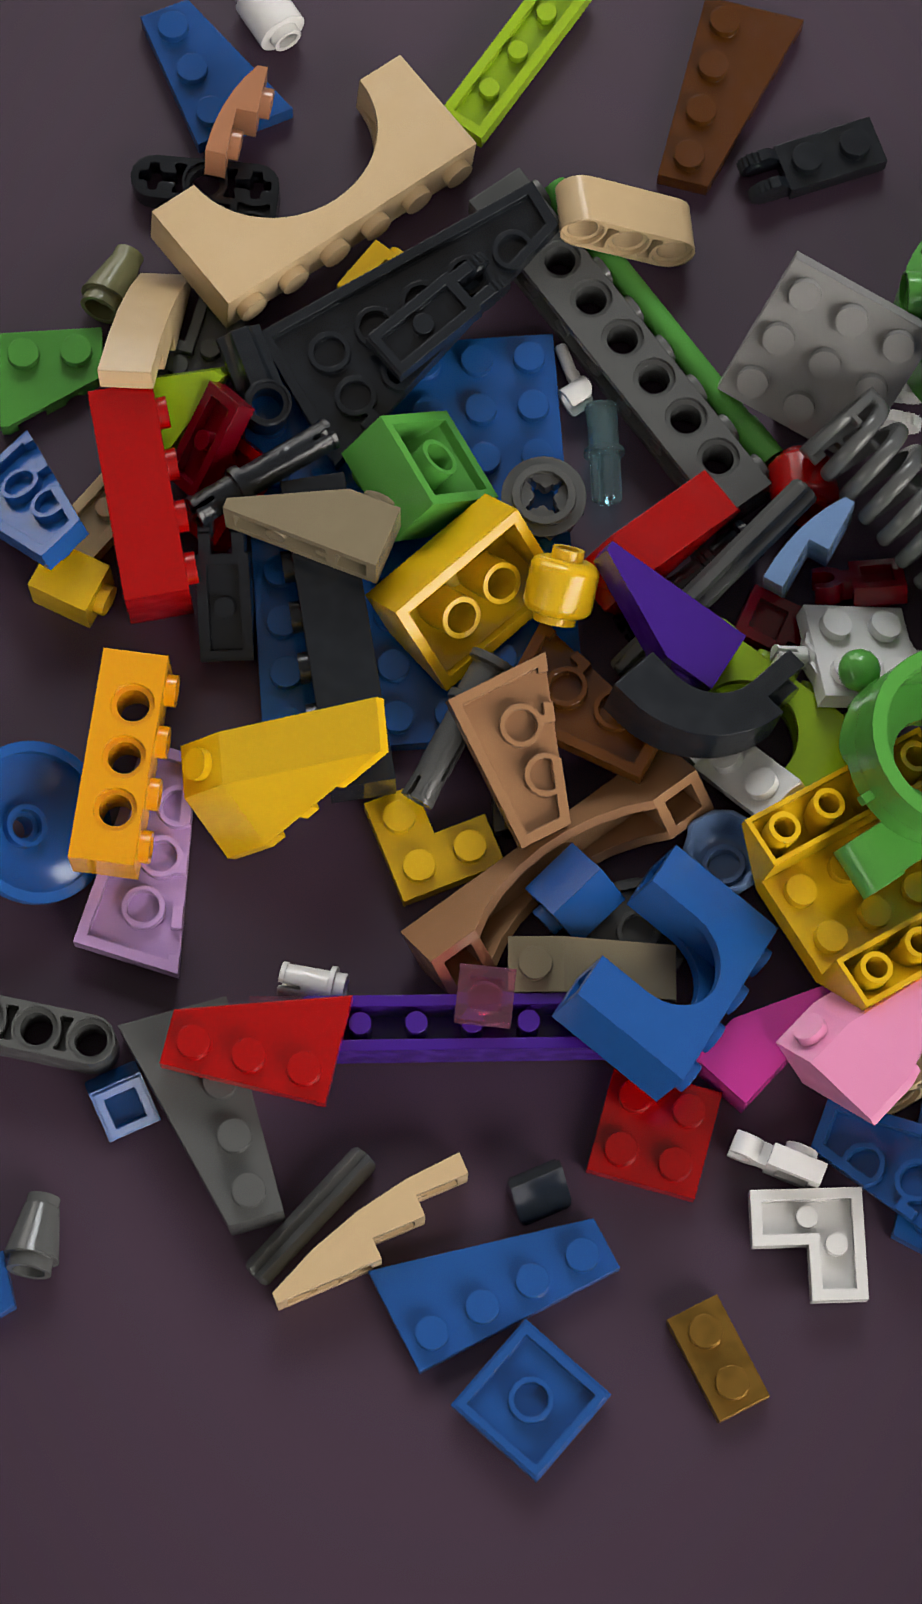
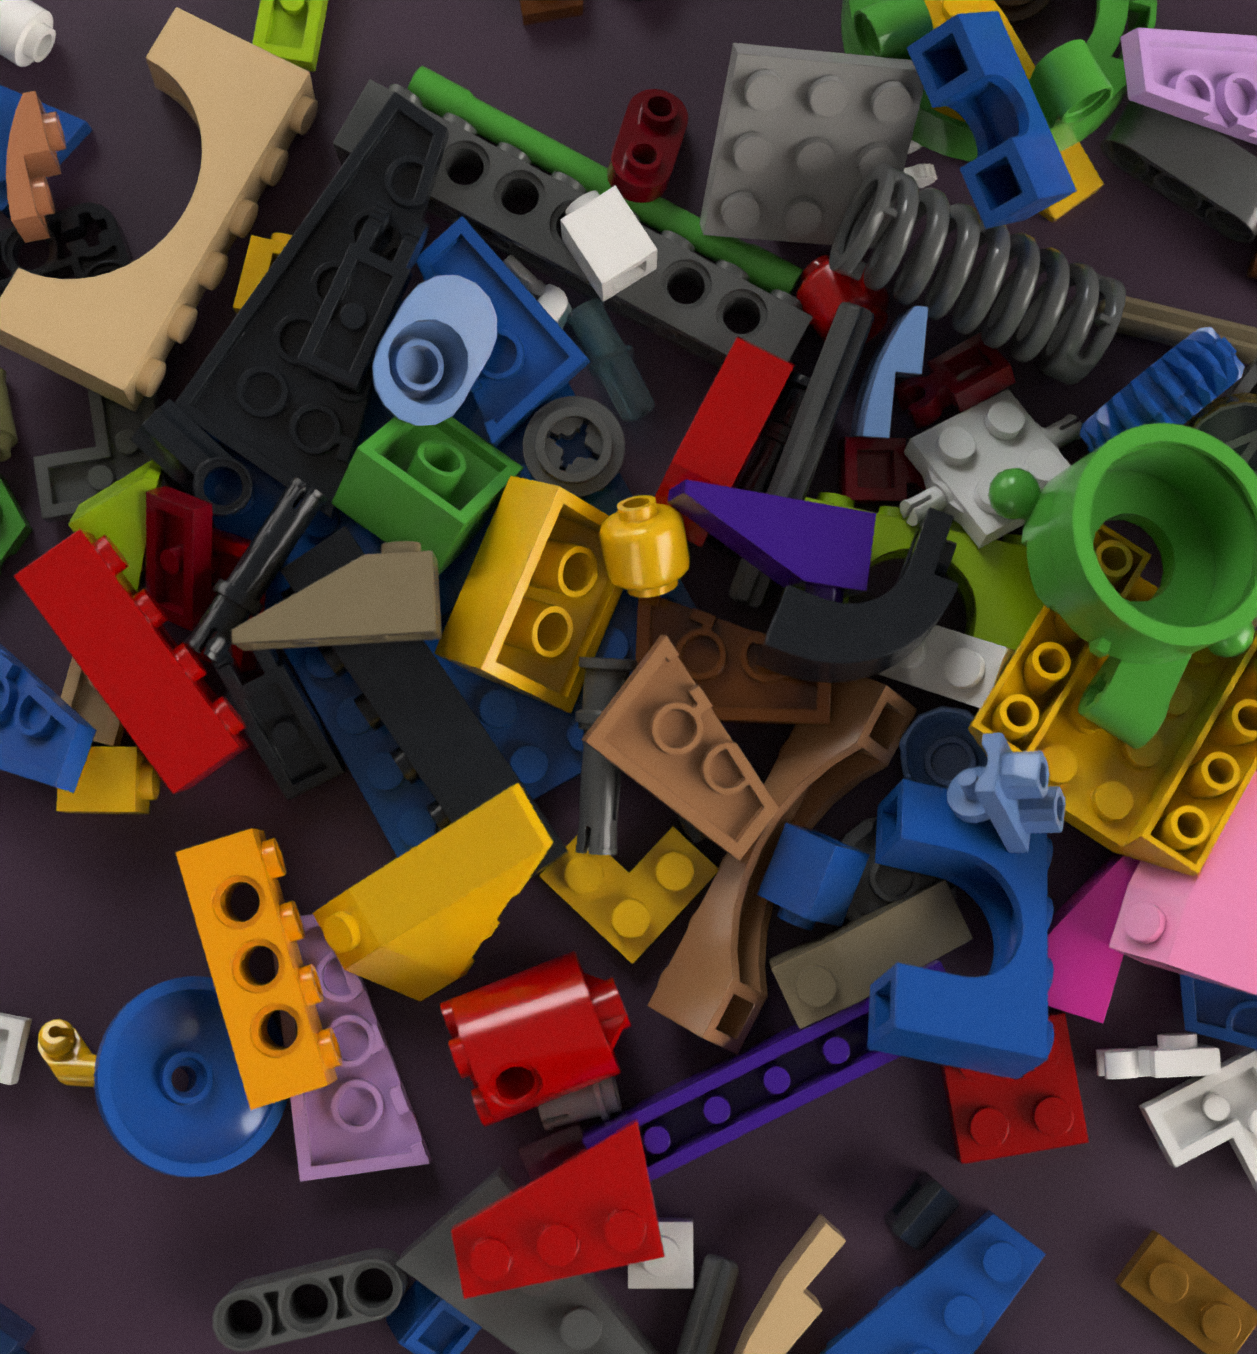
camera: 25 degrees left, 10 degrees up
(144, 331) = (44, 466): tan slope -> none
(304, 911) = (535, 1036): none -> red cylinder
(320, 1131) = (674, 1269): none -> white plate
(472, 375) = (434, 349): none -> medium blue piece
(485, 996) = (781, 1053): clear pink plate -> none
(528, 390) = (531, 349): none -> blue wing
(624, 221) = (513, 88): tan beam -> none
(639, 358) = (607, 241): none -> white brick
(716, 303) = (652, 135): none -> dark red plate
(745, 882) = (1009, 793): none -> medium blue hips

